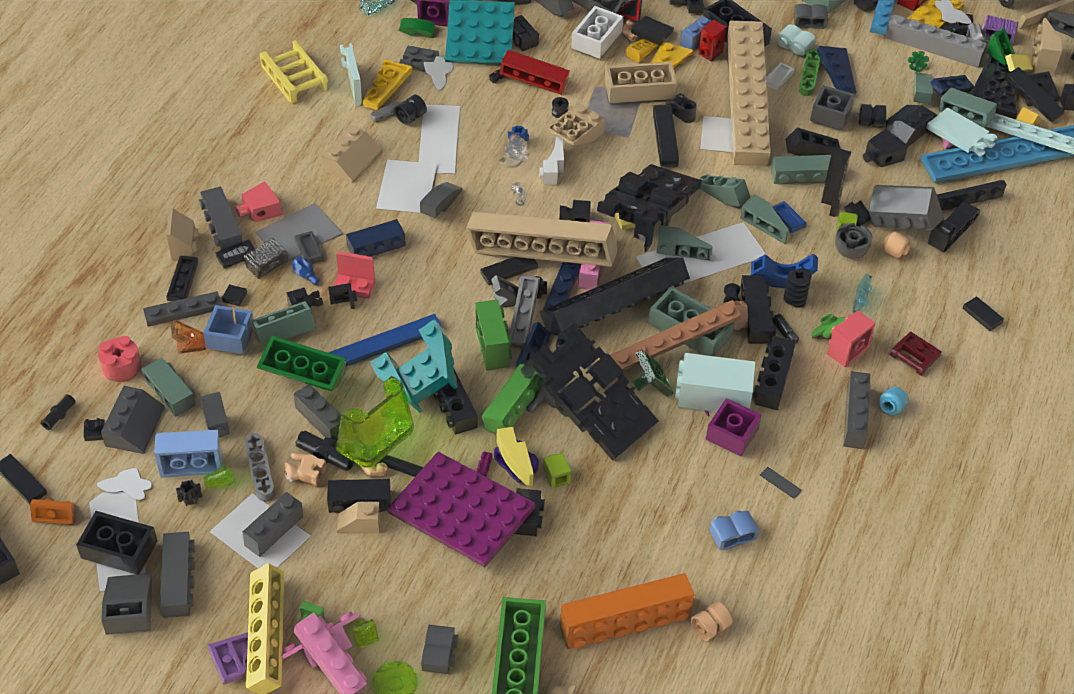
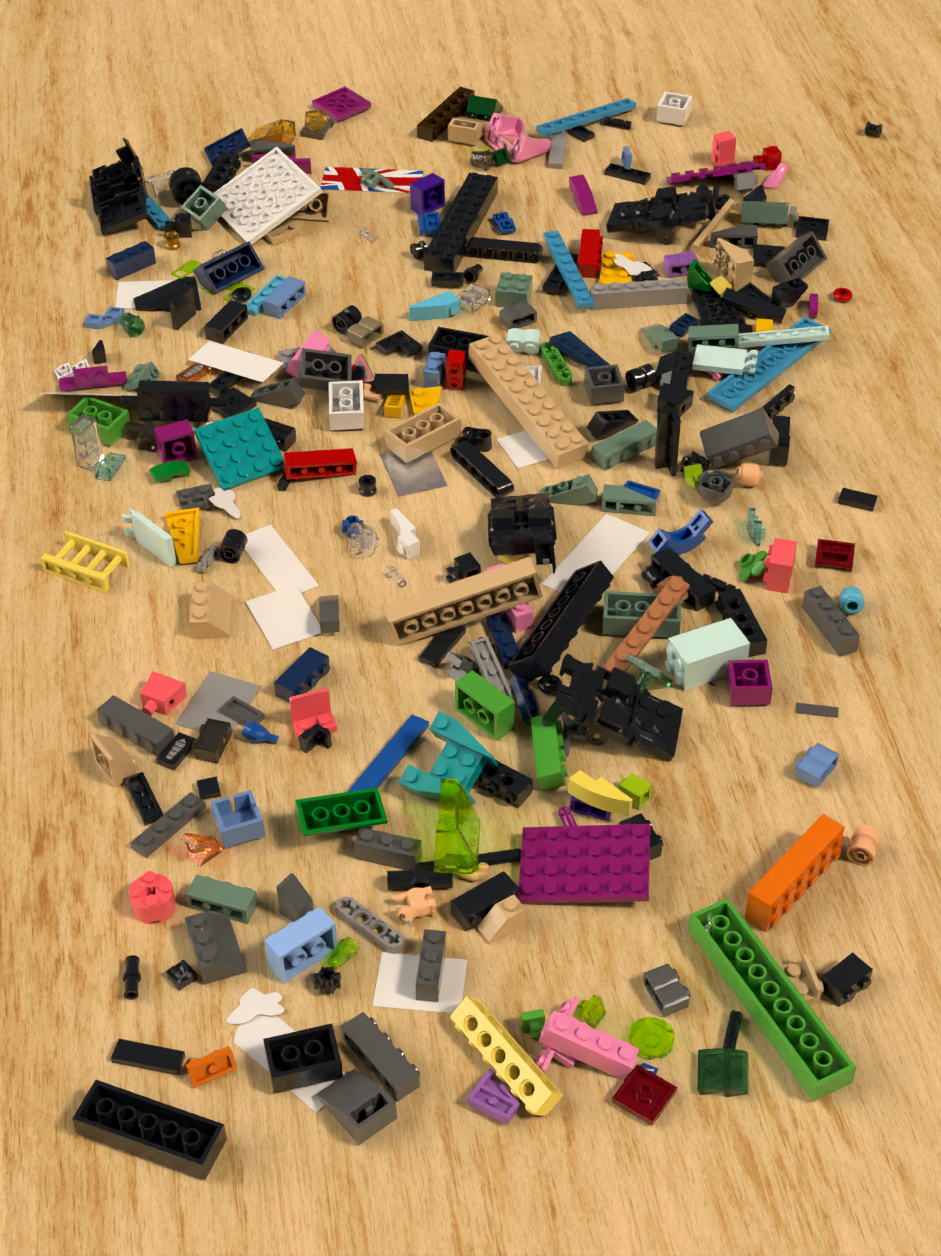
camera: 30 degrees left, 5 degrees down
(284, 323) = (285, 789): sand green brick -> none
(300, 295) = (282, 763): black brick -> none
(578, 125) = (402, 491): tan slope -> none
(680, 243) = (578, 553): sand green slope -> none
(797, 287) = (704, 544): black piece -> none
(918, 61) = (638, 317): green plant -> none
(975, 32) = (665, 273): light grey piece -> none

